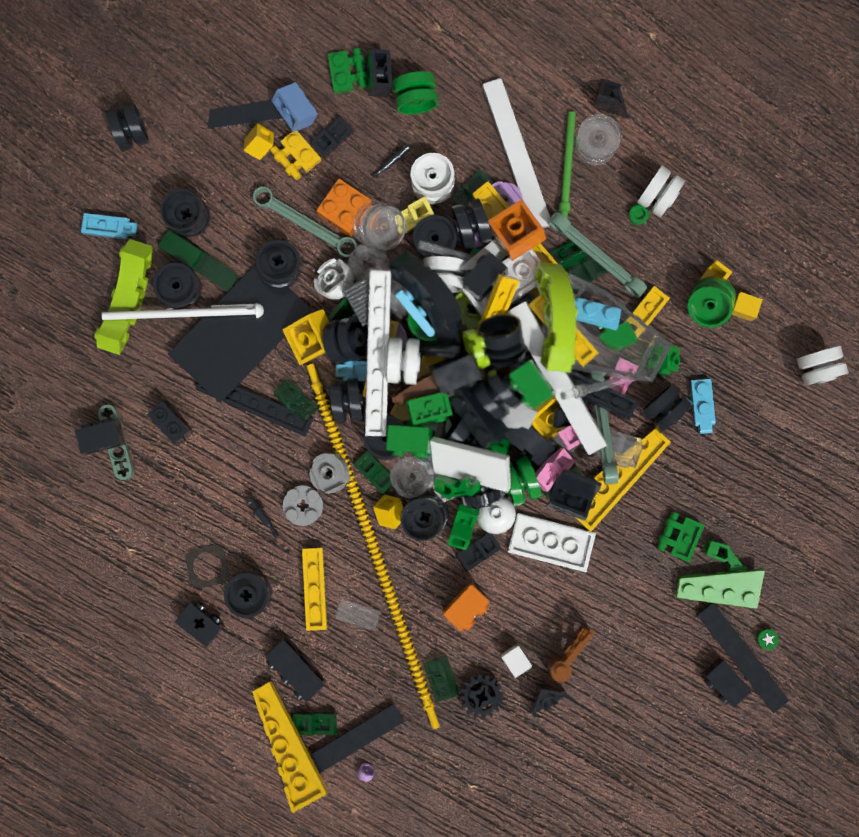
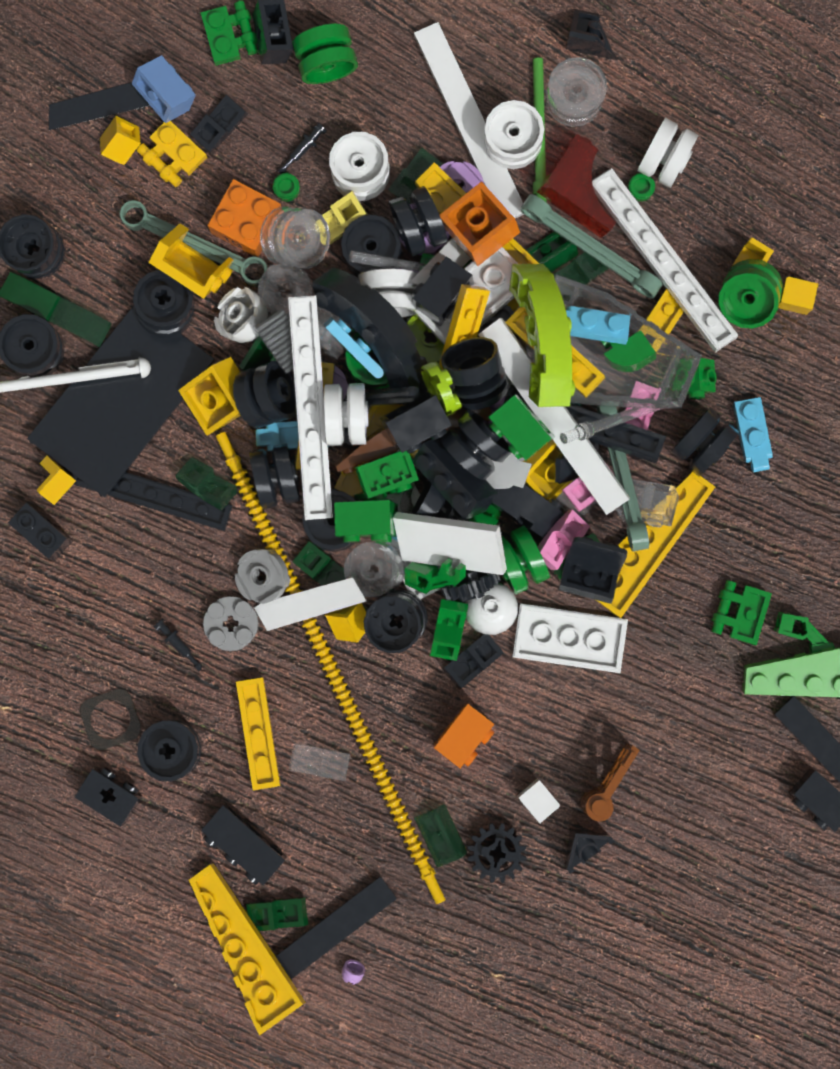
camera: 10 degrees left, 0 degrees up
(186, 388) = (56, 483): none -> yellow panel
(300, 239) = (188, 265): none -> yellow panel
(362, 497) = (309, 603): none -> white sticker
(377, 188) = (286, 187): none -> green tile
(545, 155) = (510, 119): none -> white wheel
(586, 209) = (571, 186): none -> clear red arch
(649, 270) = (663, 260): none -> white tile

